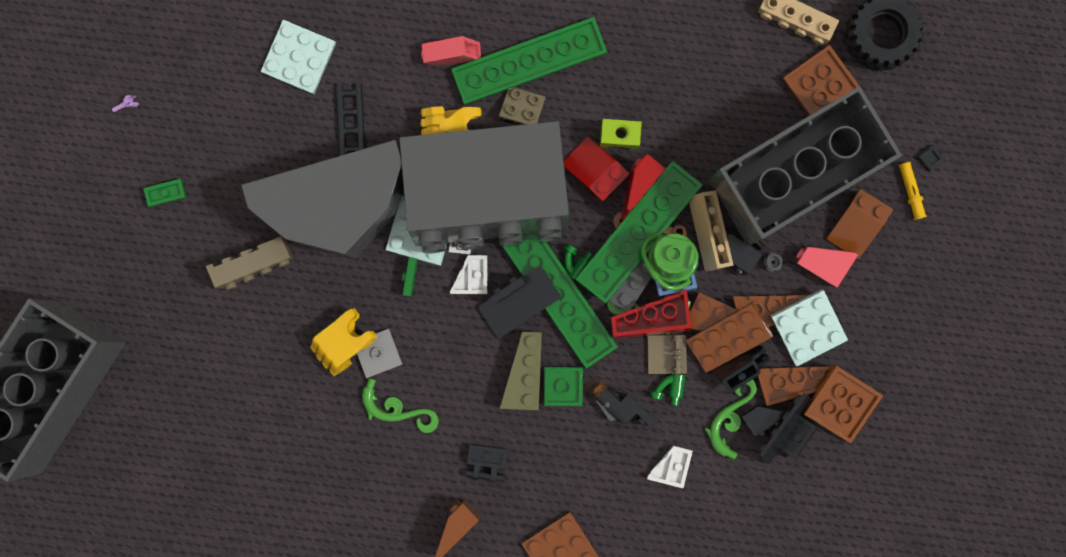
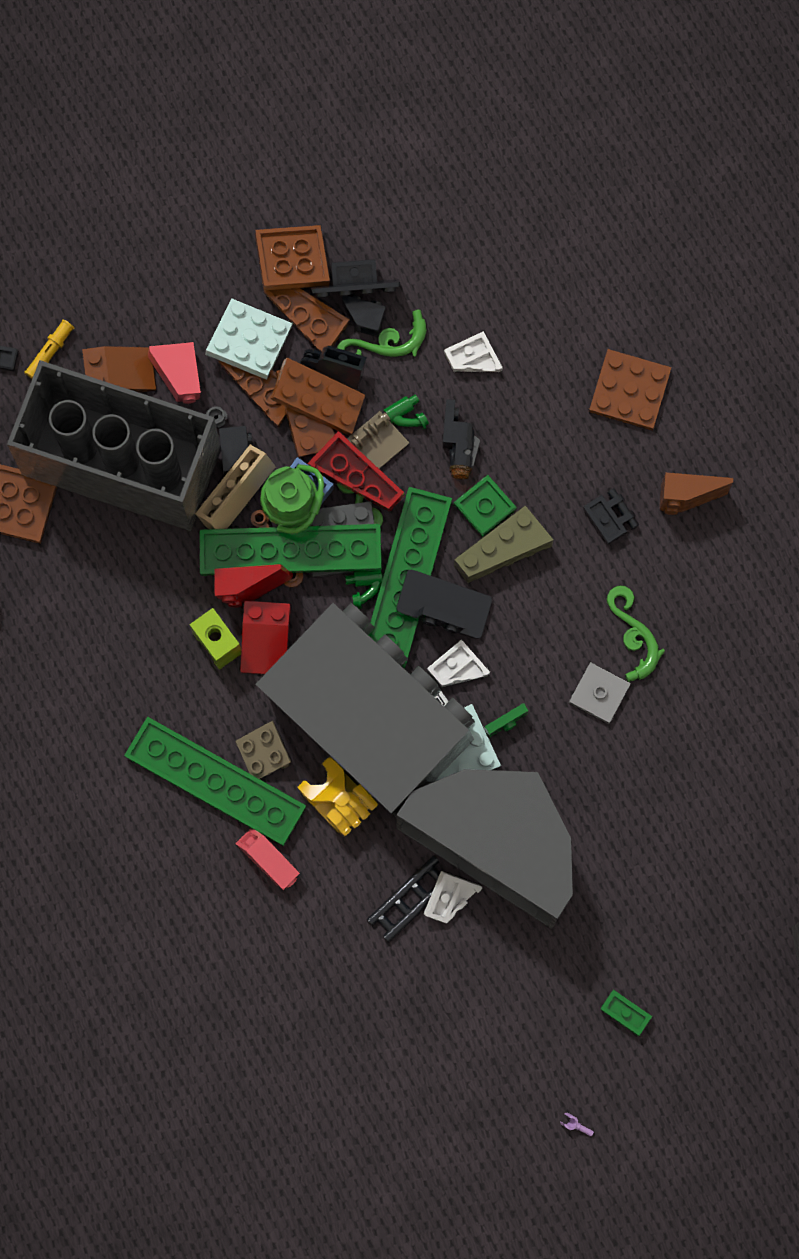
camera: 135 degrees left, 10 degrees down
(250, 263) = (620, 874): dark tan wedge -> none
(298, 57) = (392, 999): light aqua plate -> none
(330, 141) = (449, 896): none -> white wing
(340, 342) = (620, 727): yellow piece -> none

